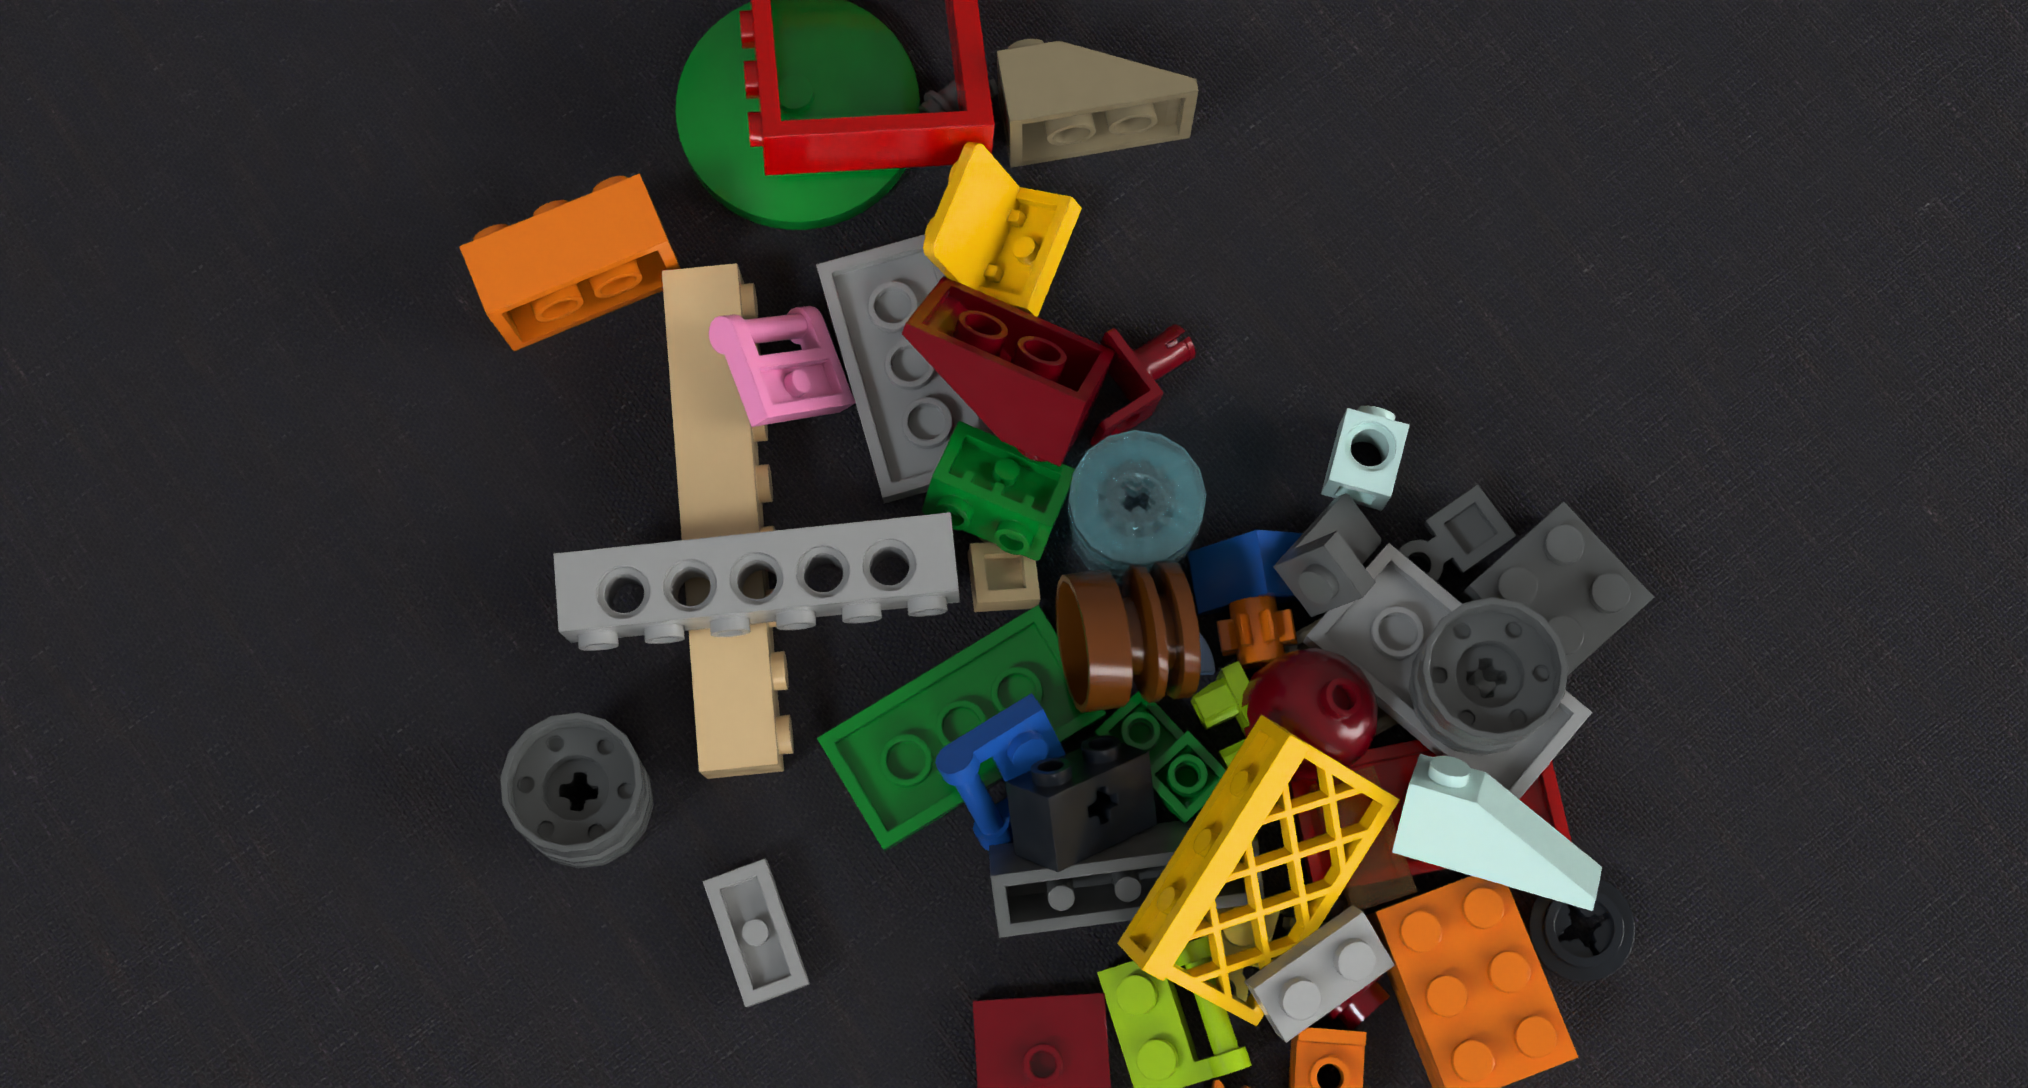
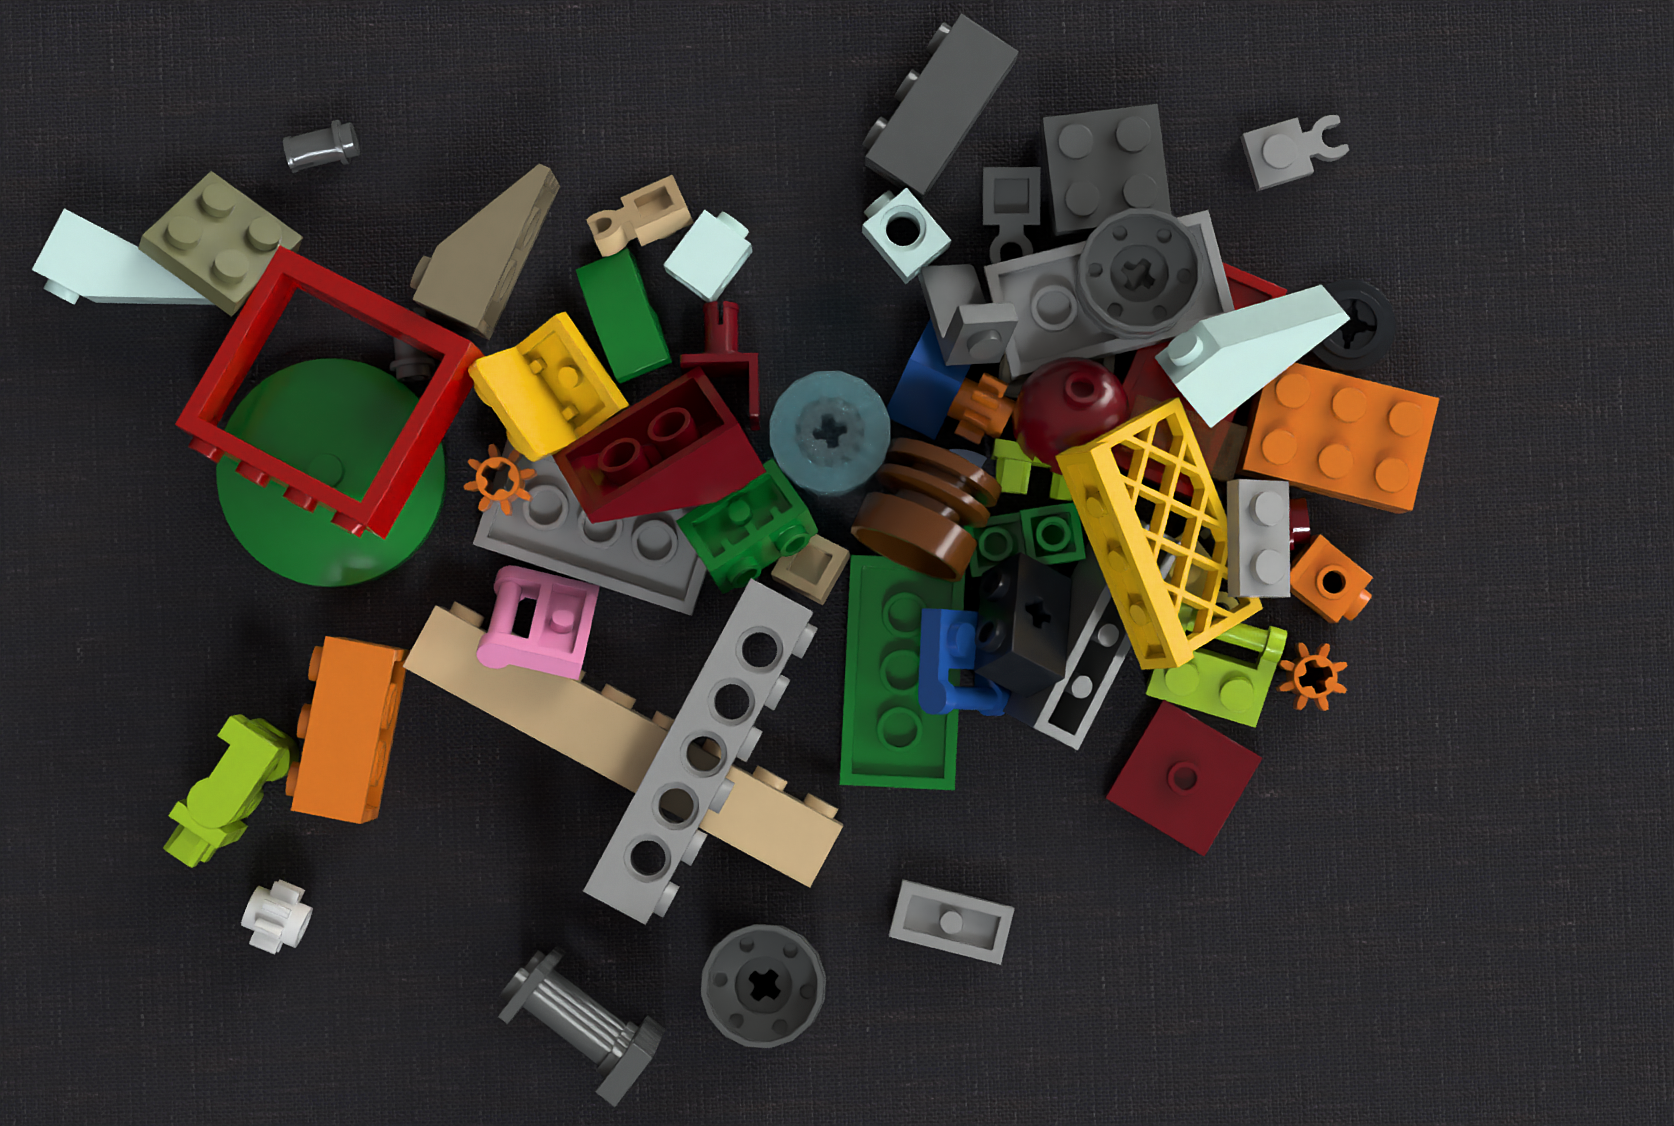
camera: 60 degrees left, 10 degrees up
(362, 315) = (276, 916): none -> white gear
(426, 633) = (615, 1046): none -> dark grey fence
(445, 196) = (232, 791): none -> lime hips
(884, 225) = (485, 485): none -> orange gear
(1112, 259) = (623, 316): none -> green slope
(1217, 221) = (647, 214): none -> tan plate
(1221, 298) = (709, 255): none -> light aqua brick
(1503, 410) = (938, 106): none -> dark grey brick
(1695, 755) = (1284, 153): none -> light grey plate

